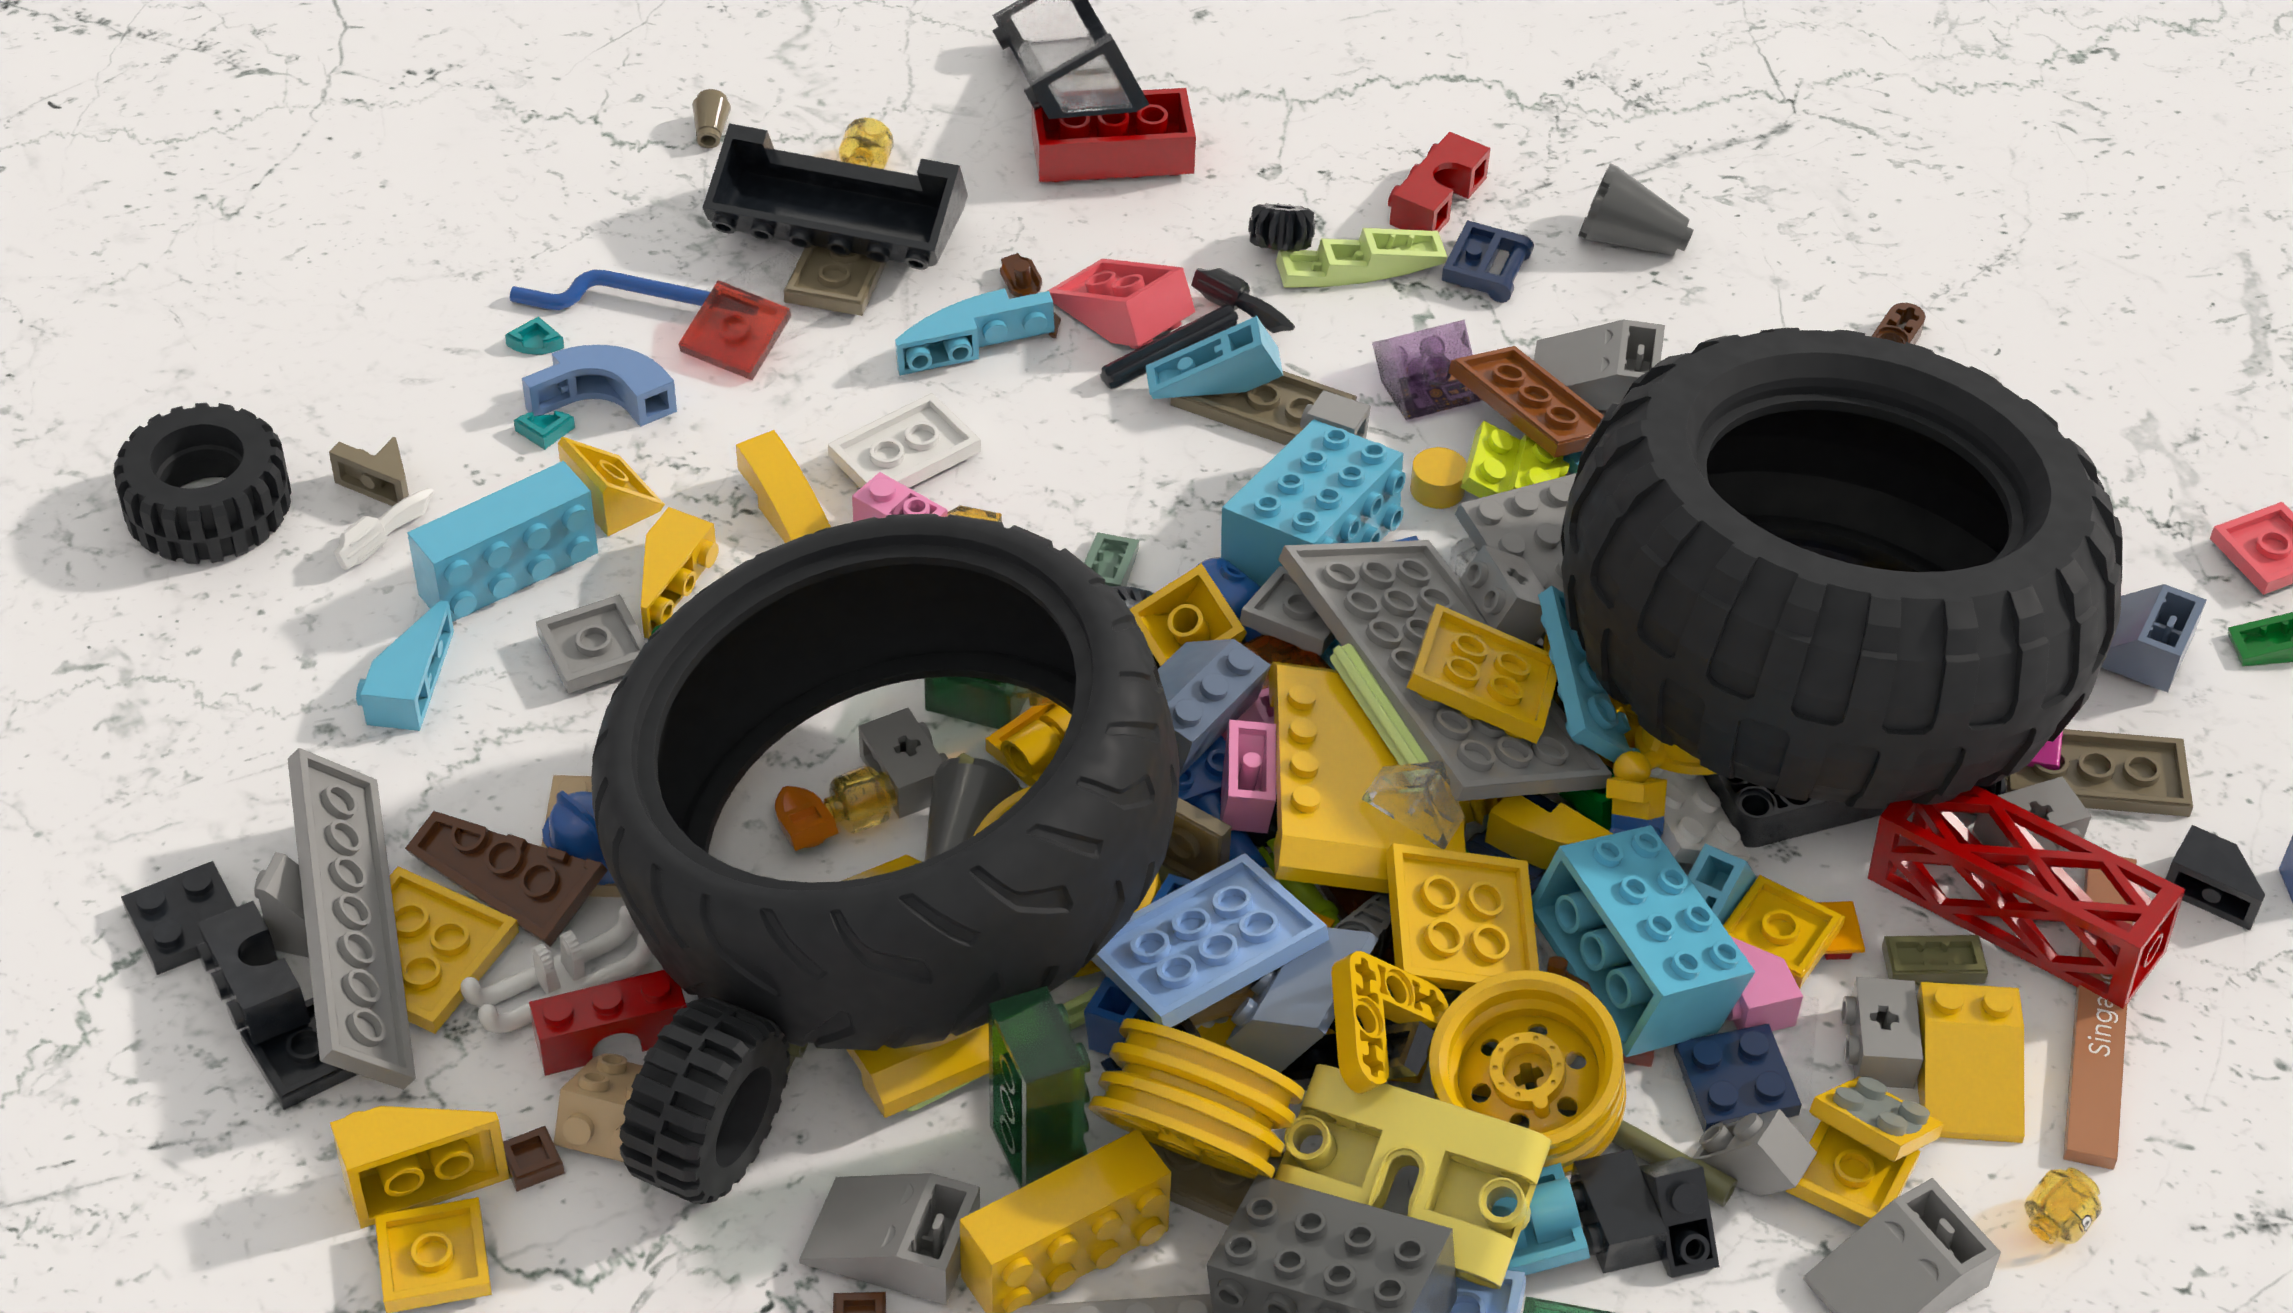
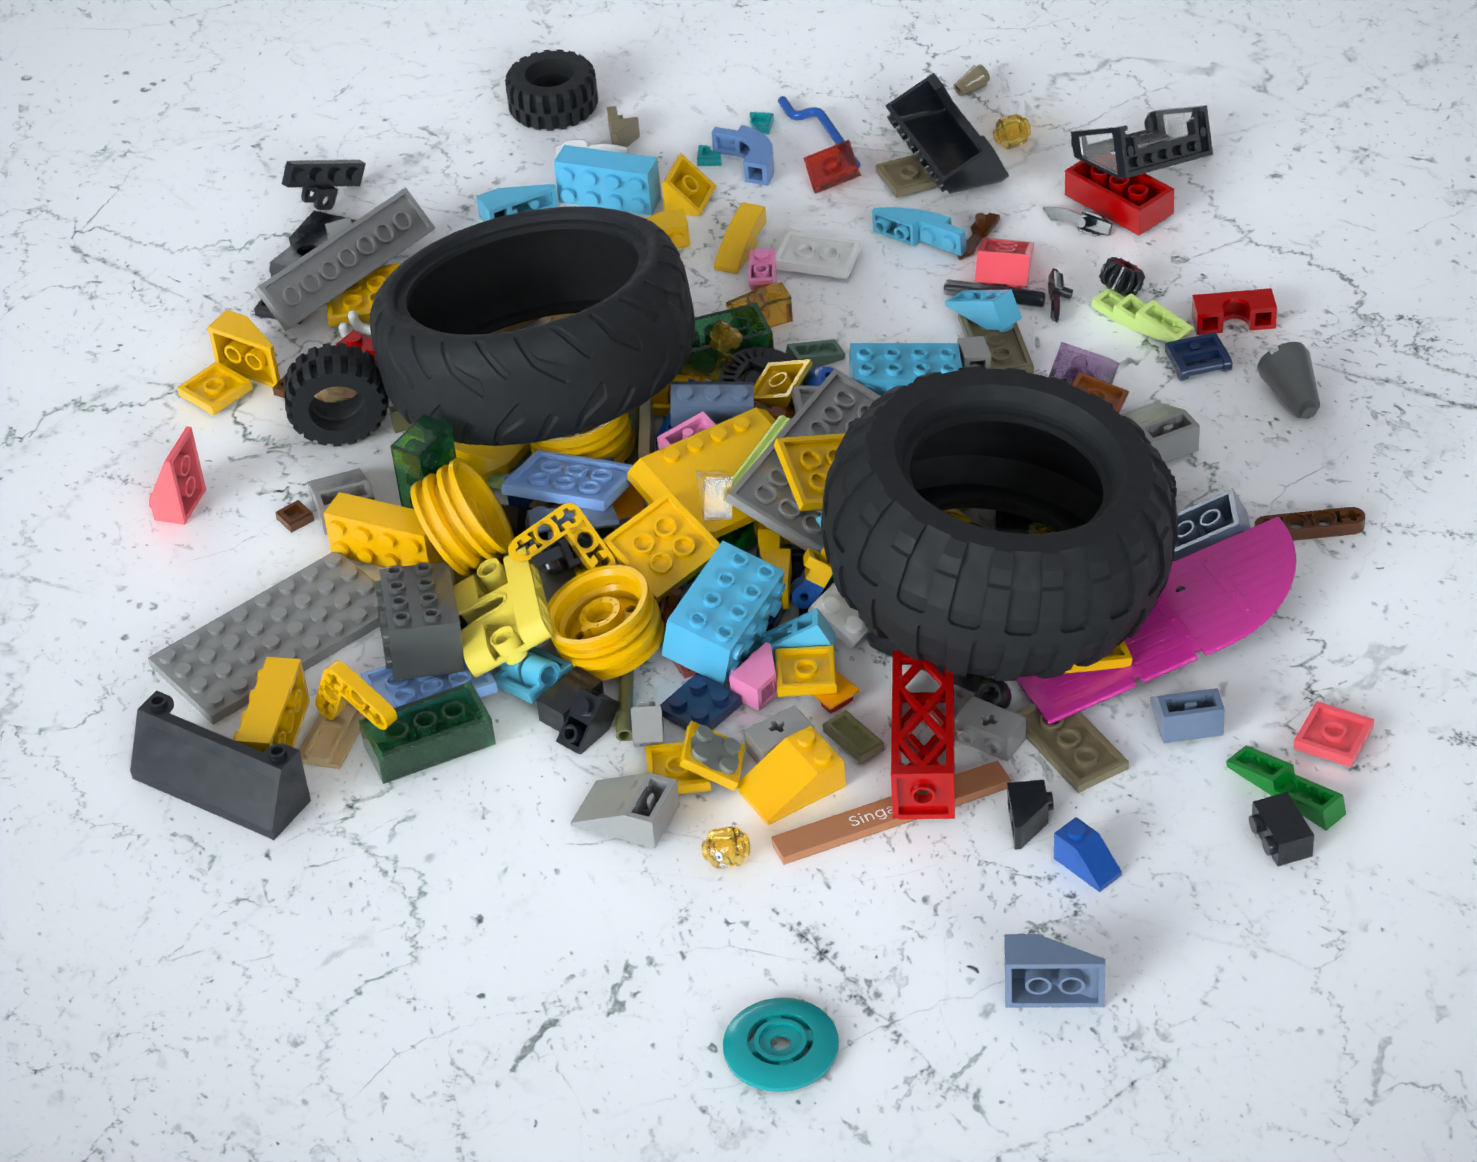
camera: 60 degrees right, 5 degrees down
(89, 837) = (322, 178): none -> black plate
(1120, 195) = (1086, 221): none -> piece

